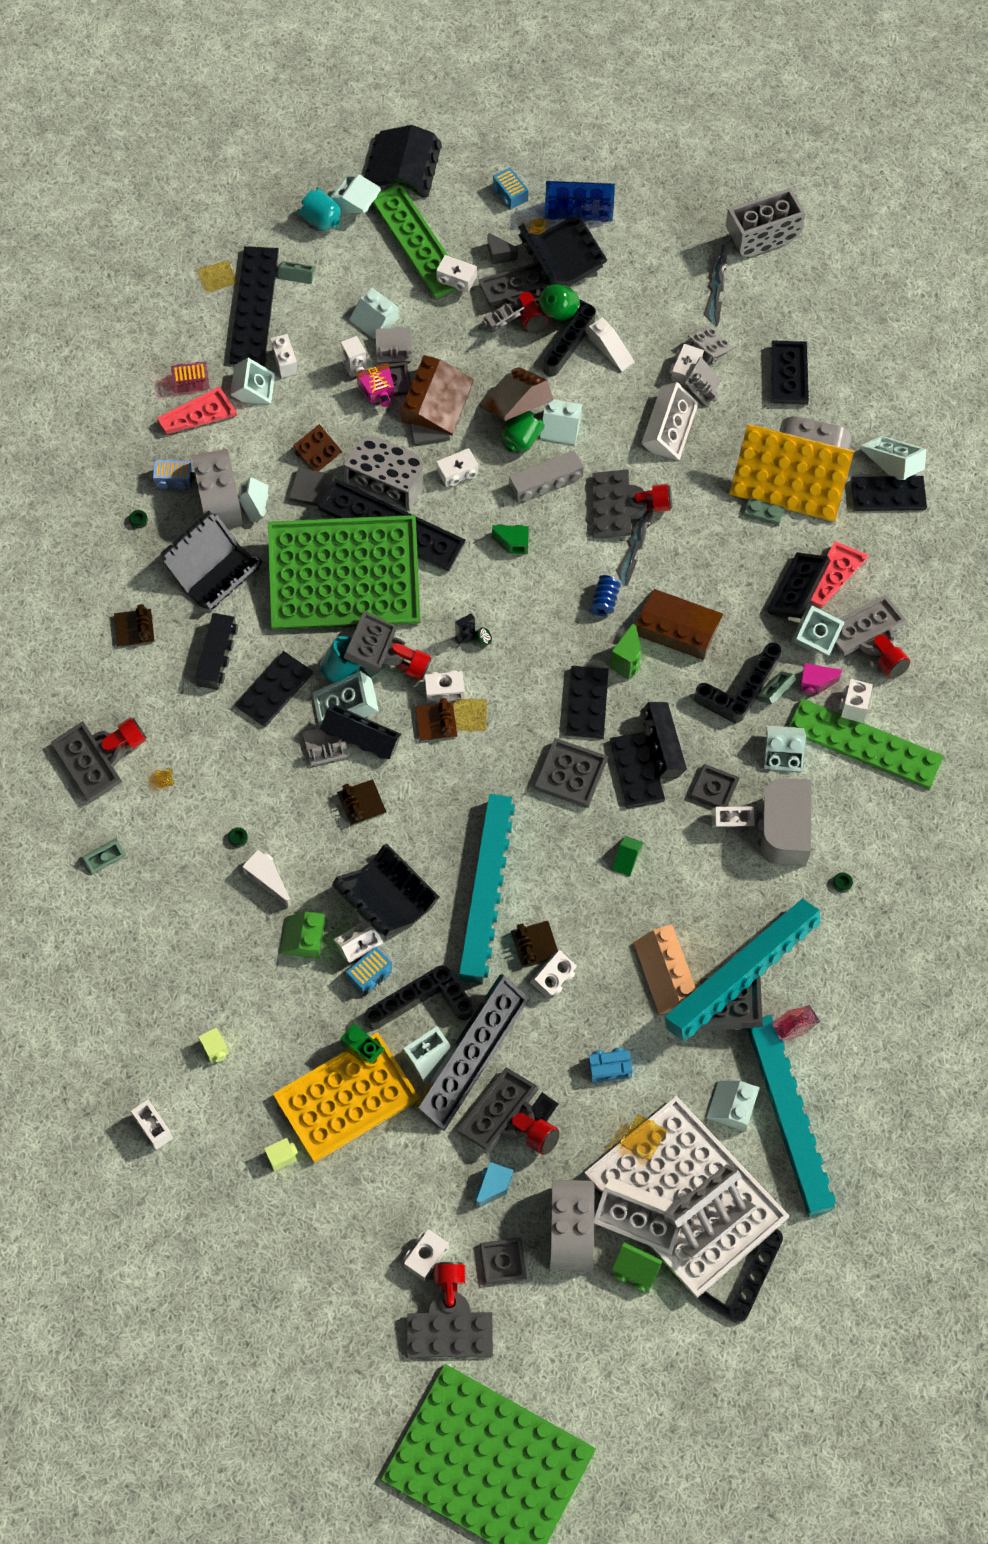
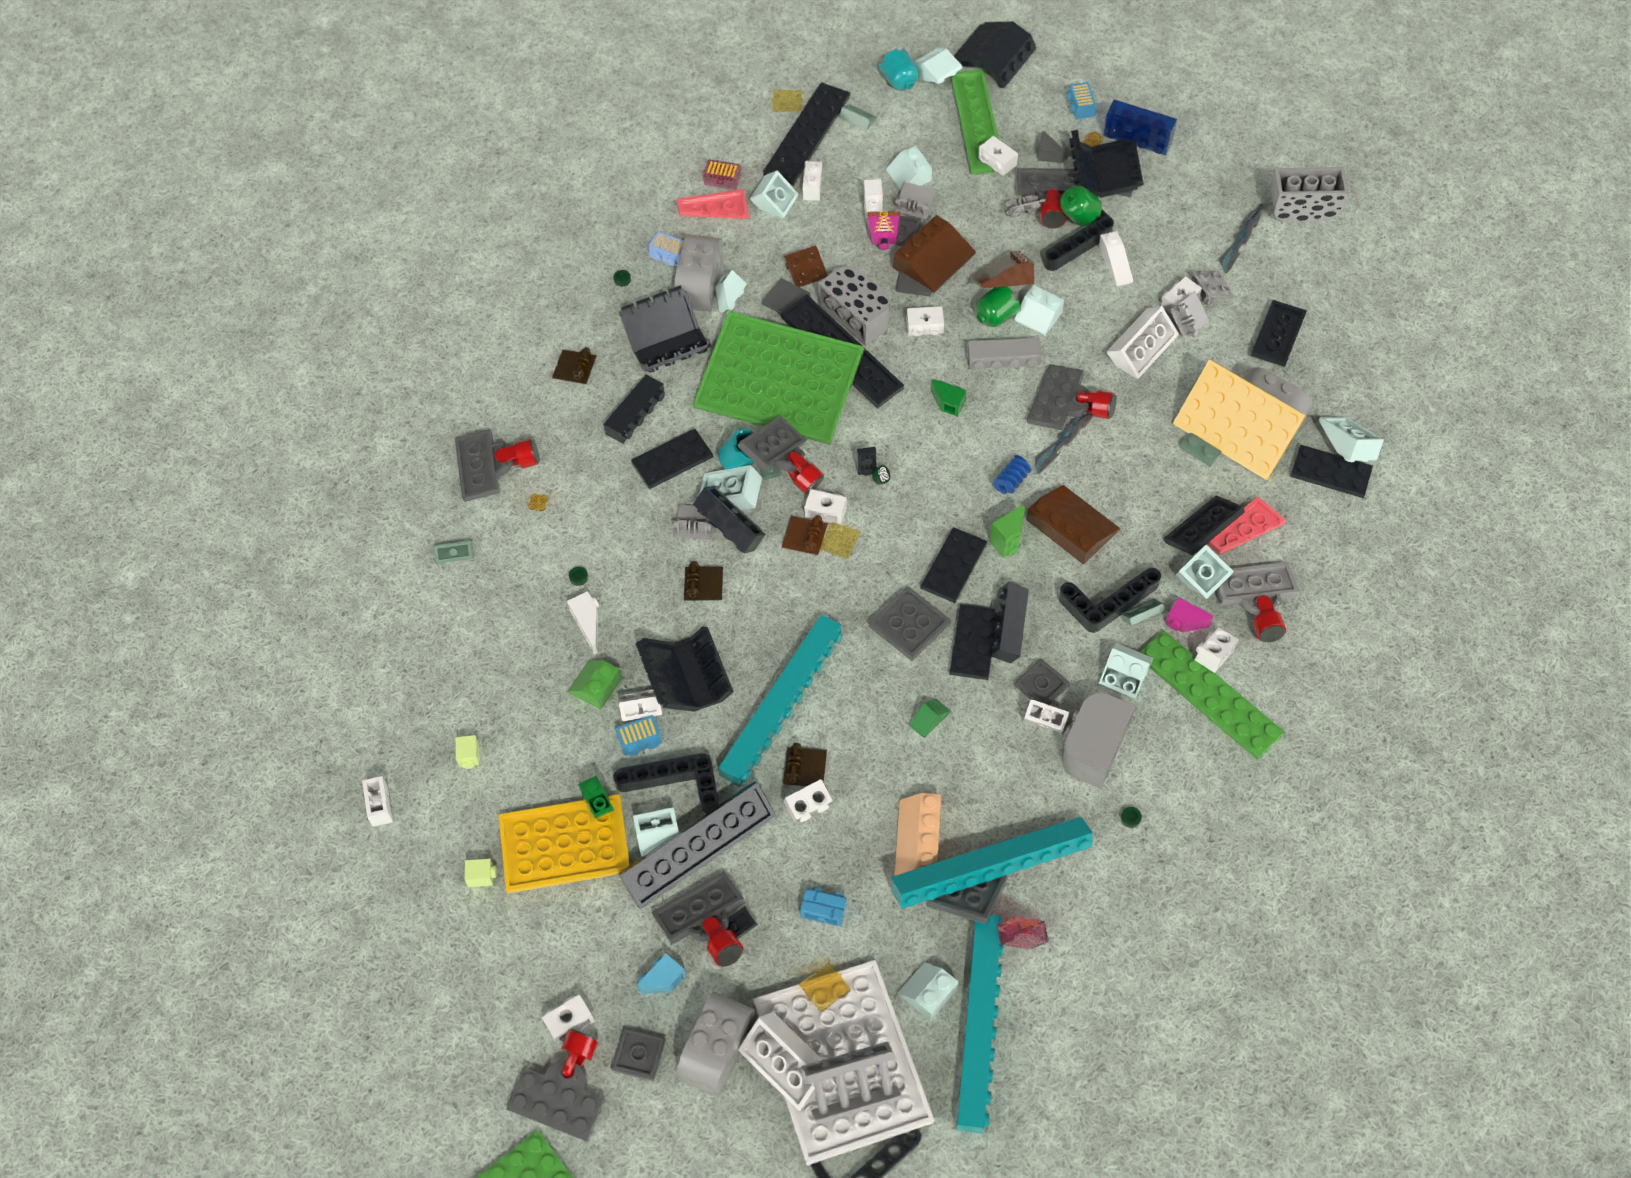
camera: 25 degrees right, 5 degrees down
(636, 1268) = (760, 1111): bright green slope -> none

